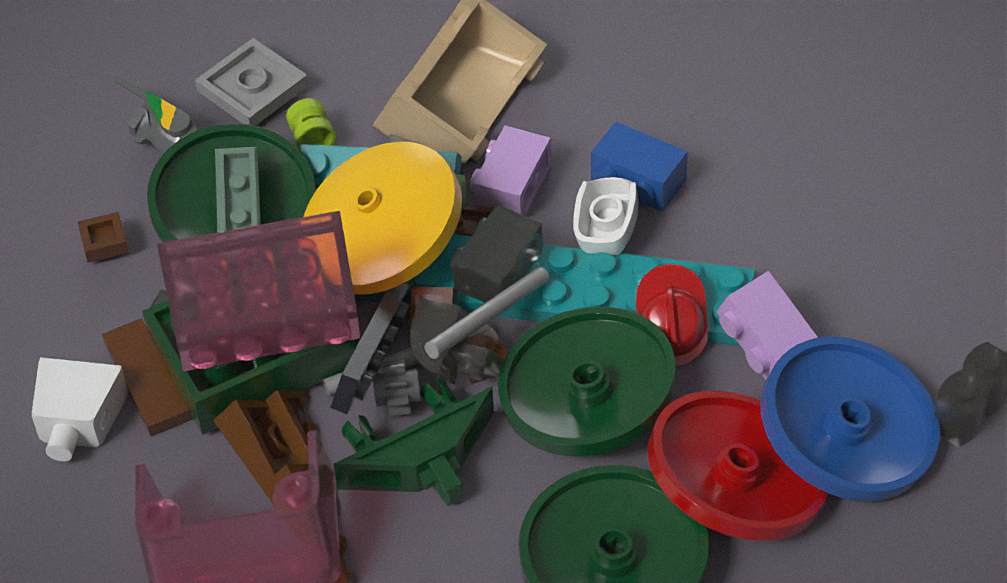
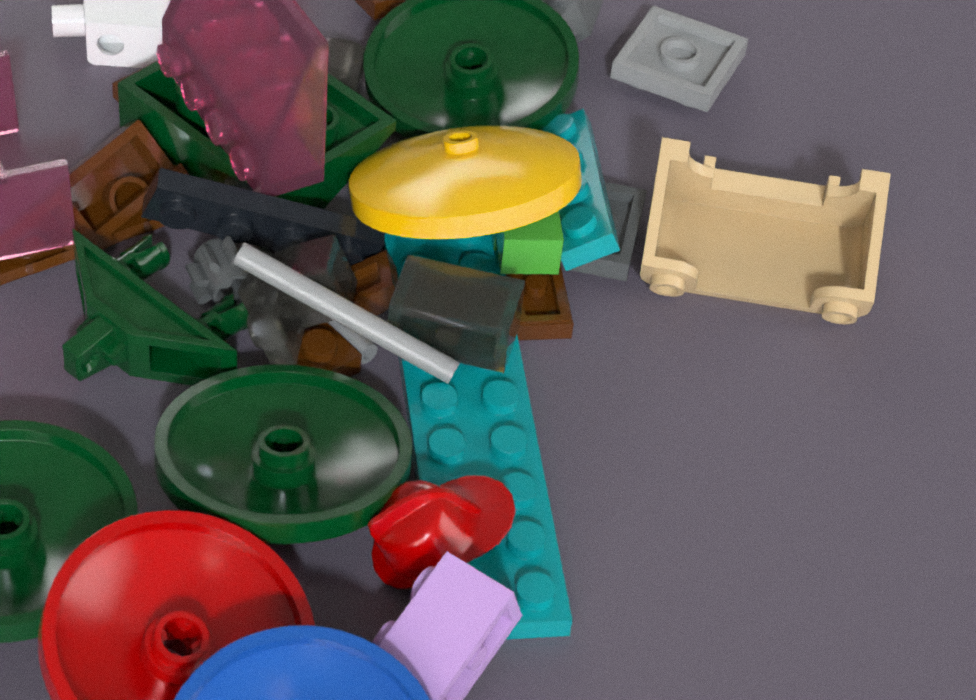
camera: 65 degrees right, 5 degrees down
(237, 188) = (449, 65): sand green tile -> none
(310, 123) = (623, 121): lime wheel -> none
(512, 170) = (634, 322): lavender brick -> none
(605, 215) = (592, 424): white piece -> none
(643, 159) = (706, 451): blue brick -> none

